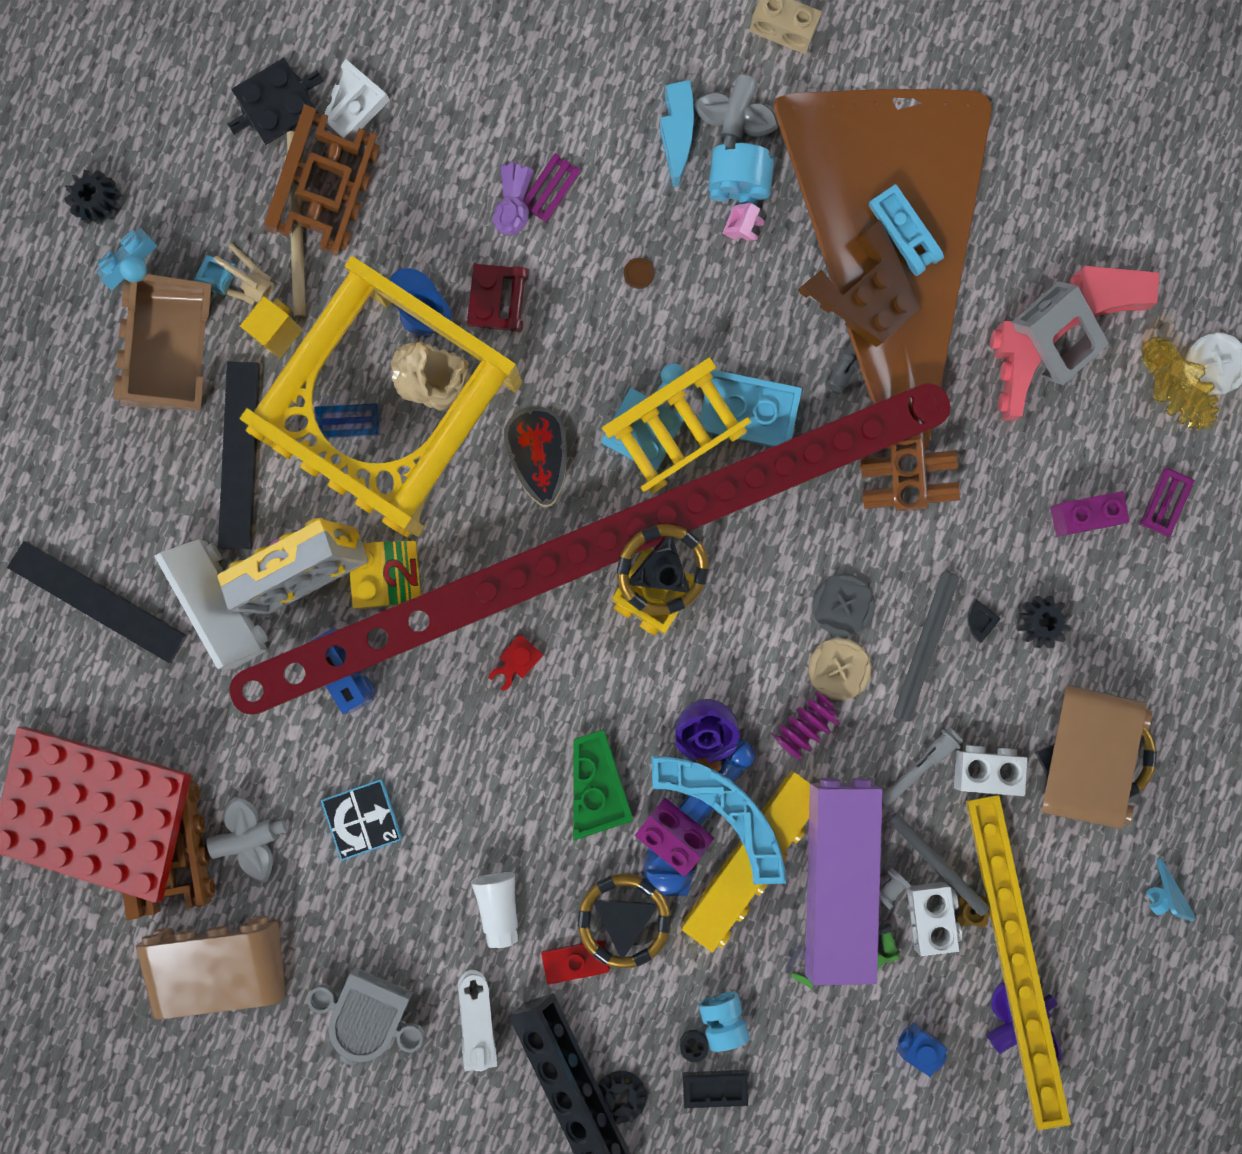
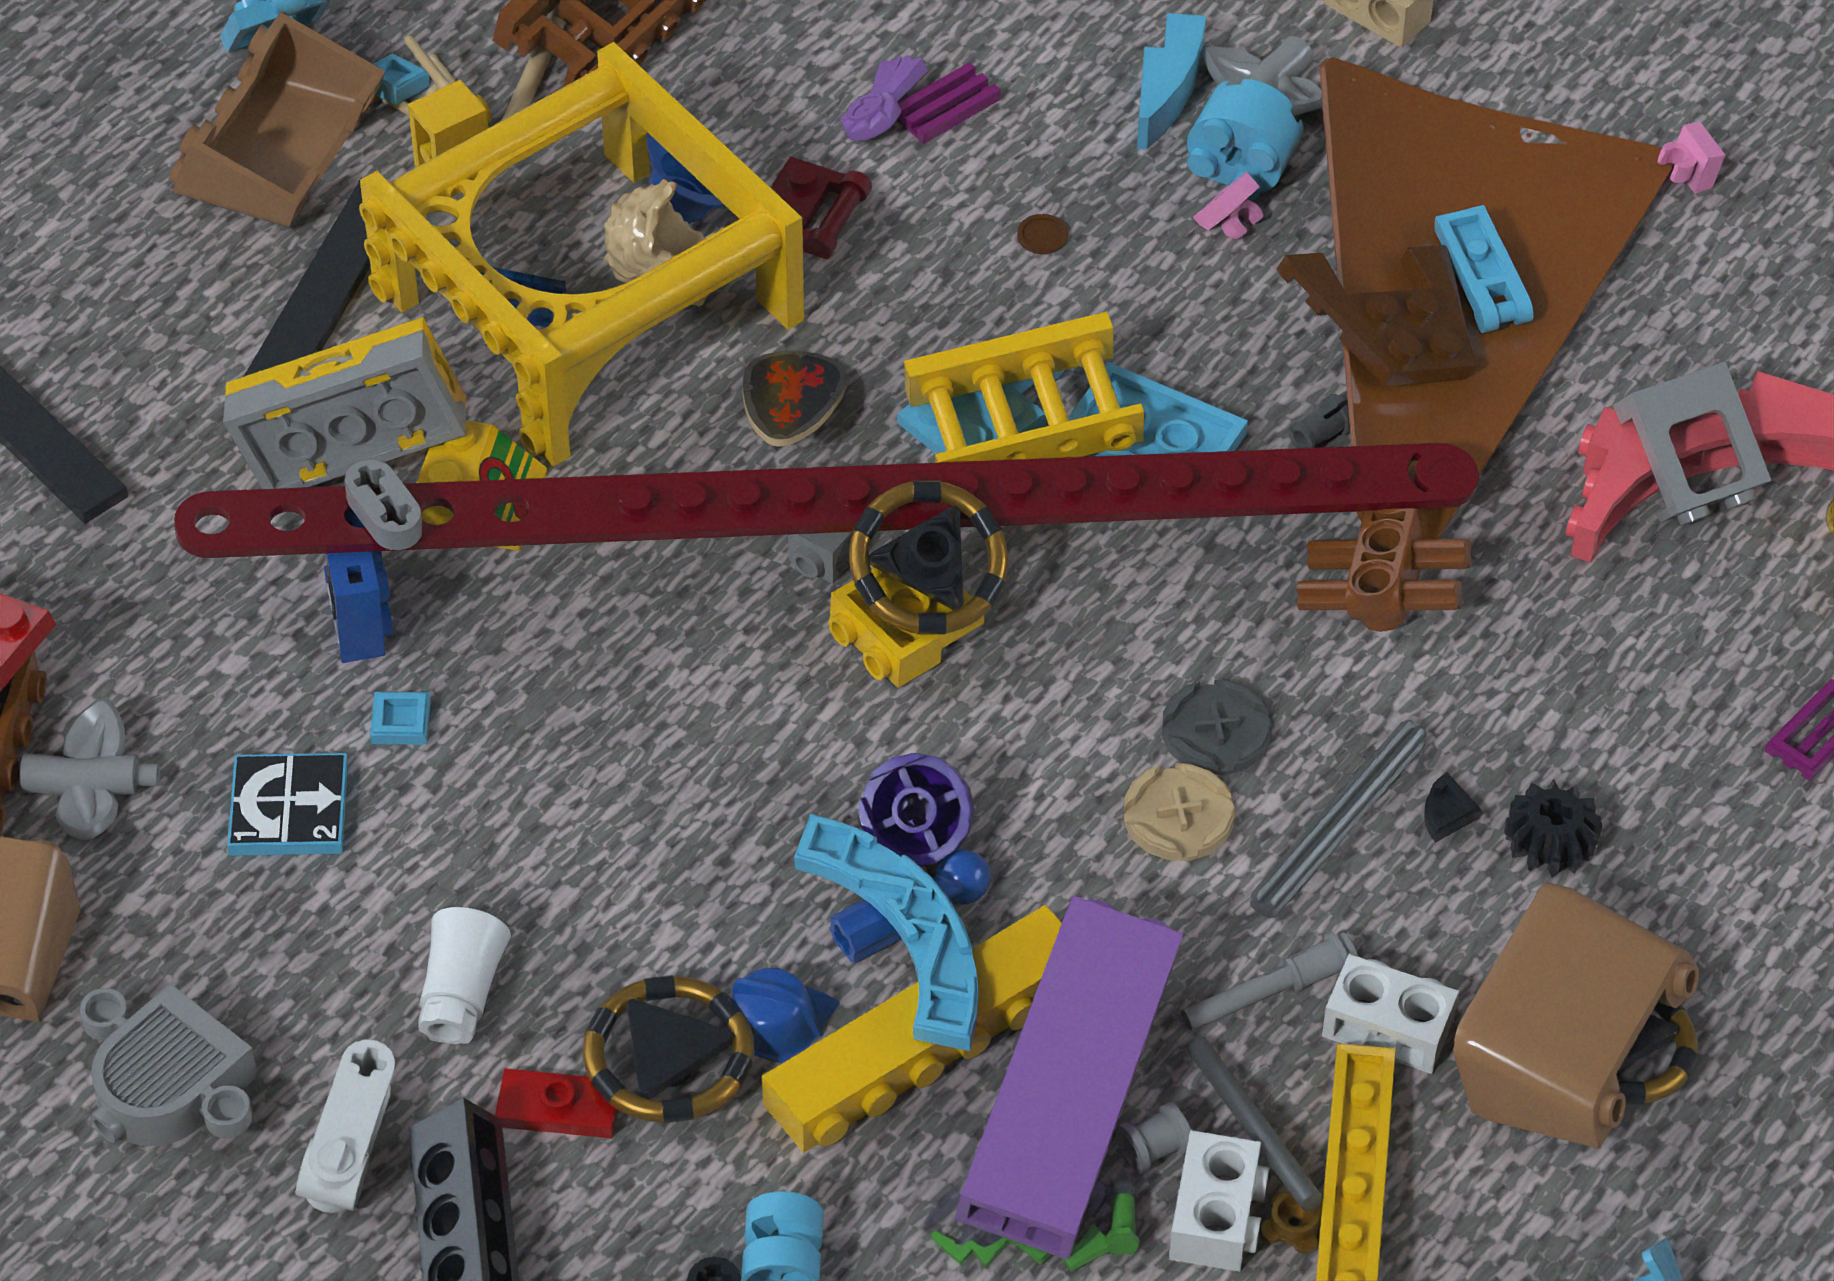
camera: 20 degrees right, 35 degrees down
(193, 577) = (192, 425): white slope -> none
(341, 658) = (393, 499): none -> light grey beam
(400, 742) = (400, 718): none -> medium azure tile
(519, 659) = (642, 657): red plate -> none
(597, 788) = (701, 862): green wing -> none
(674, 837) = (804, 945): magenta brick -> none
(807, 726) = (1090, 859): magenta piece -> none
(1005, 98) = (1694, 157): none -> bright pink tile
(1089, 514) = (1675, 697): magenta brick -> none

